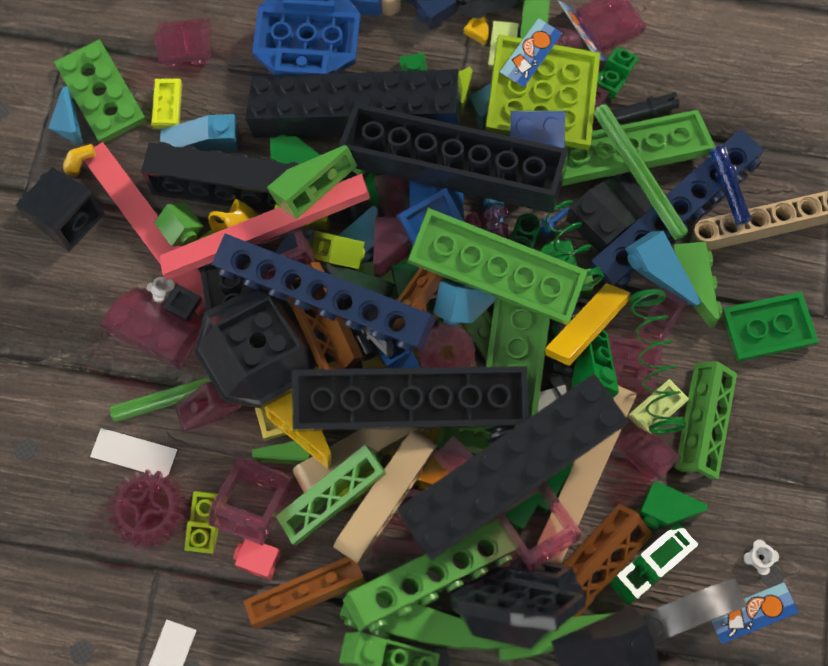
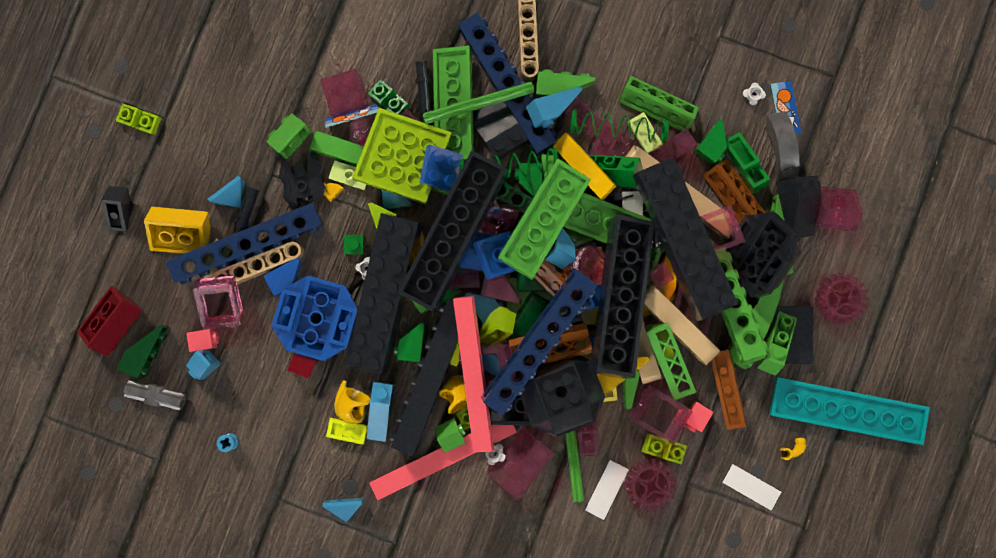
camera: 80 degrees left, 15 degrees up
(60, 208) = (418, 520): black slope -> none
(75, 157) = (379, 503): yellow arm -> none
(105, 76) = (319, 492): bright green plate -> none
(182, 303) = (511, 441): black plate -> none
(184, 42) = (297, 410): clear pink slope -> none
(204, 94) = (348, 399): none -> yellow piece
(242, 31) = (302, 365): none -> dark red panel
(308, 182) = (452, 337): bright green slope -> none
(531, 52) = (371, 157): sticker -> none
(727, 176) = (502, 43): clear blue pin -> none
(769, 326) = (603, 45): green plate -> none

